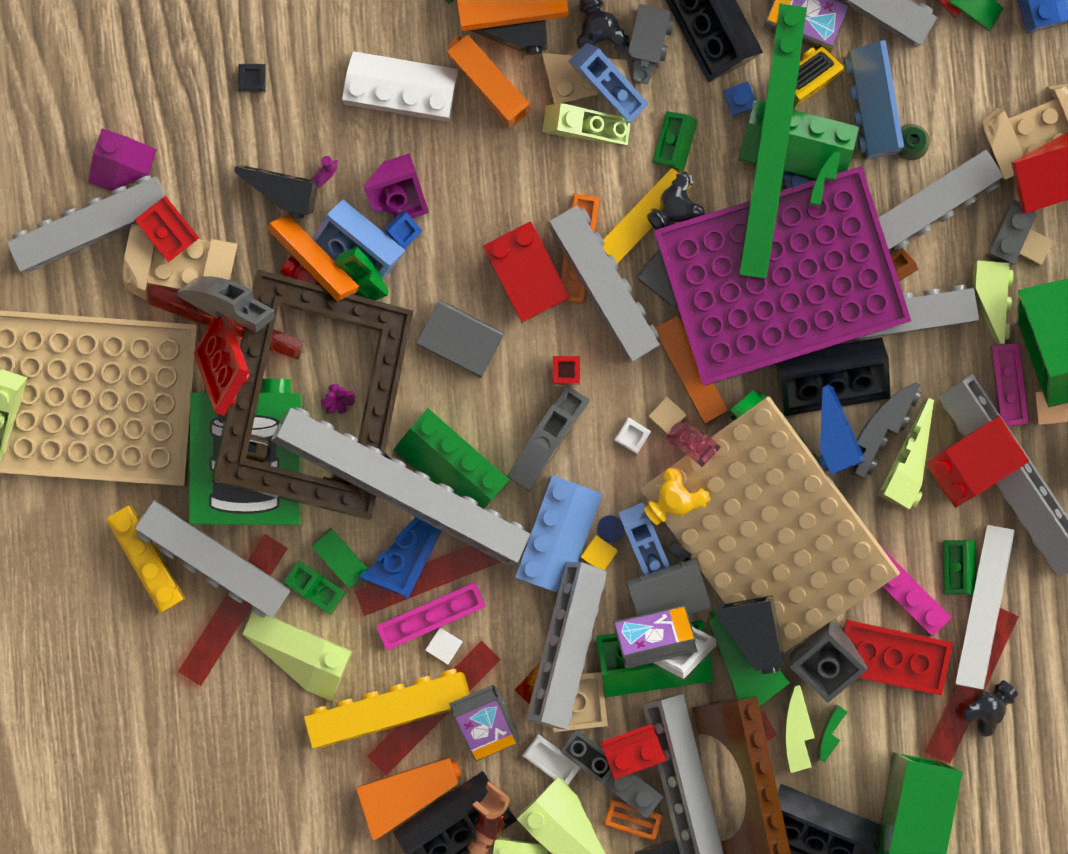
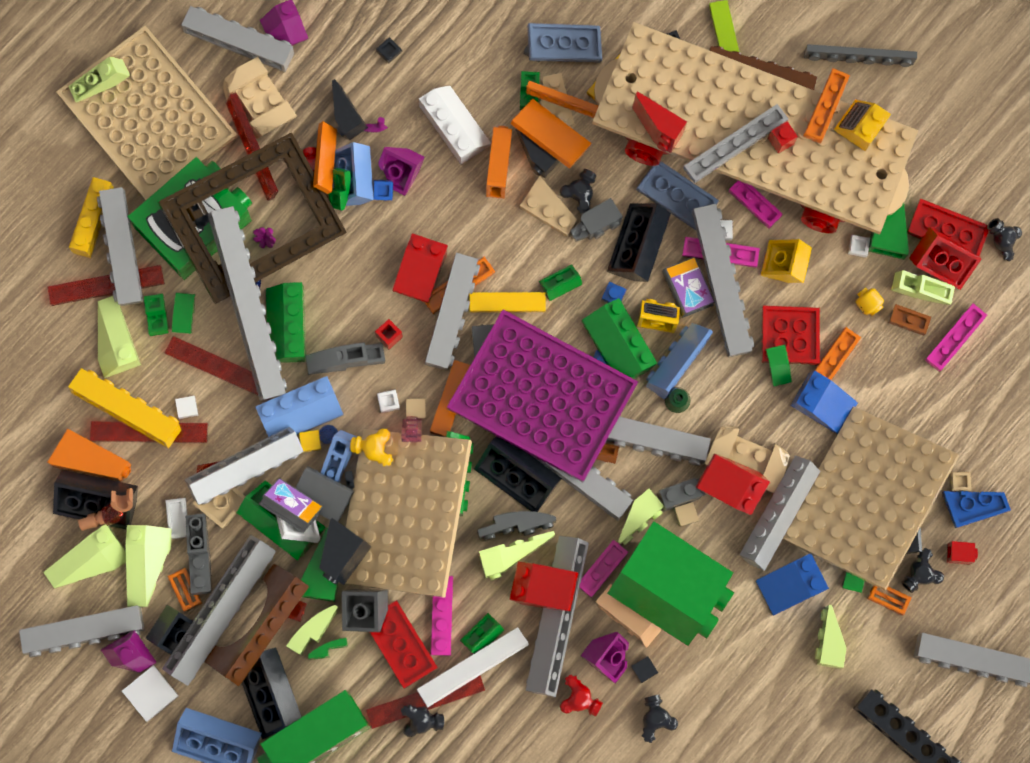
camera: 40 degrees right, 10 degrees down
(166, 229) = (270, 74): red plate -> none
(221, 364) = (225, 156): red plate -> none
(228, 298) = (261, 130): dark grey slope -> none
(404, 561) = (208, 346): blue wing -> none
(430, 616) = (196, 385): dark pink plate -> none
(460, 338) = (355, 268): dark grey piece -> none
(485, 722) = (163, 461): piece -> none
(585, 124) = (525, 230): yellowish green slope -> none
(608, 81) = (556, 219): medium blue slope -> none
(633, 751) = (219, 551): red plate -> none
(675, 204) = (528, 308): black animal -> none
(773, 141) = (605, 323): green slope -> none
(828, 175) = (616, 366): green slope -> none
(837, 439) = (486, 497): blue slope -> none

